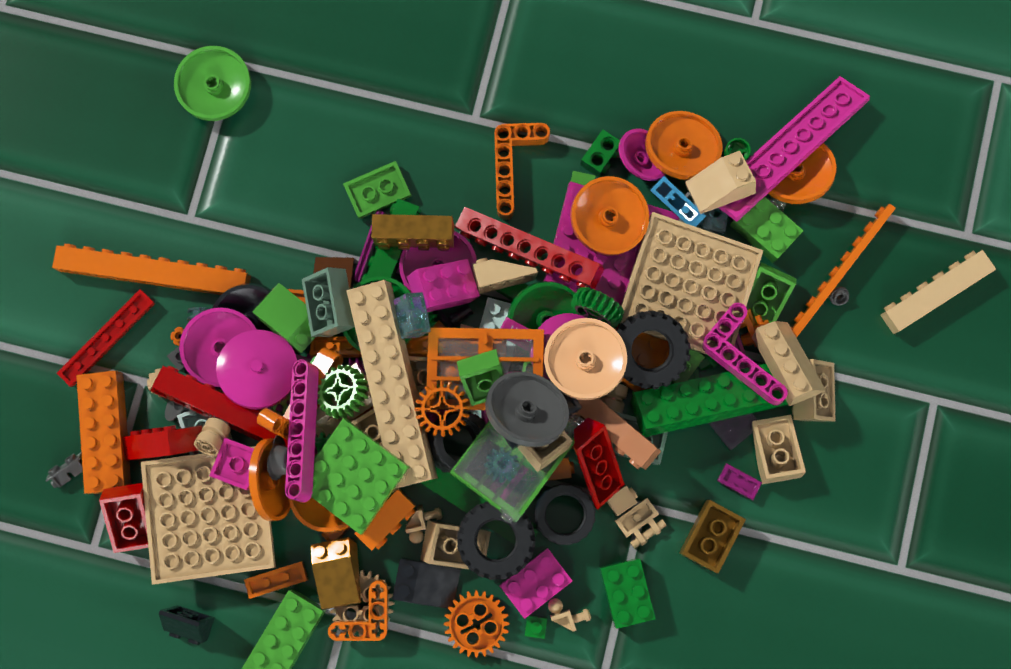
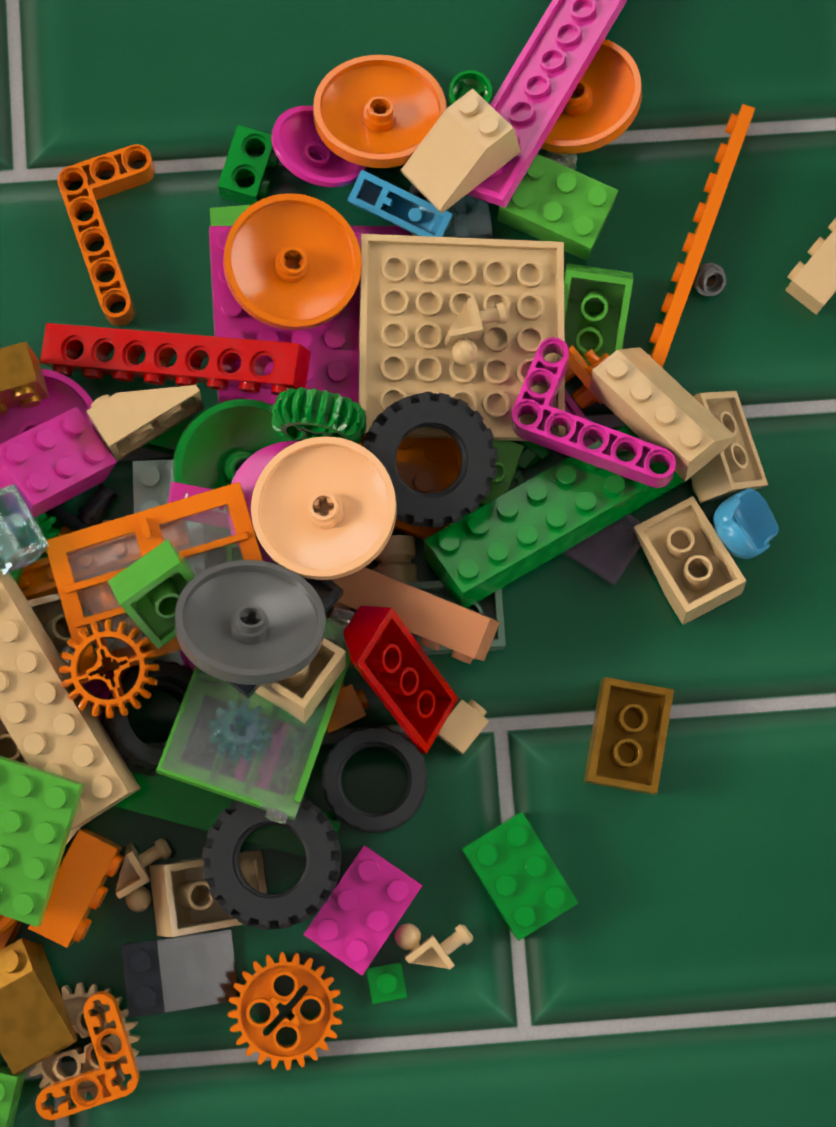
camera: 30 degrees left, 0 degrees up
(638, 517) = (497, 746): tan plate -> none
(696, 282) = (469, 328): none -> tan piece
(739, 481) = (644, 632): magenta plate -> none
(815, 439) = (745, 524): none -> dark azure piece

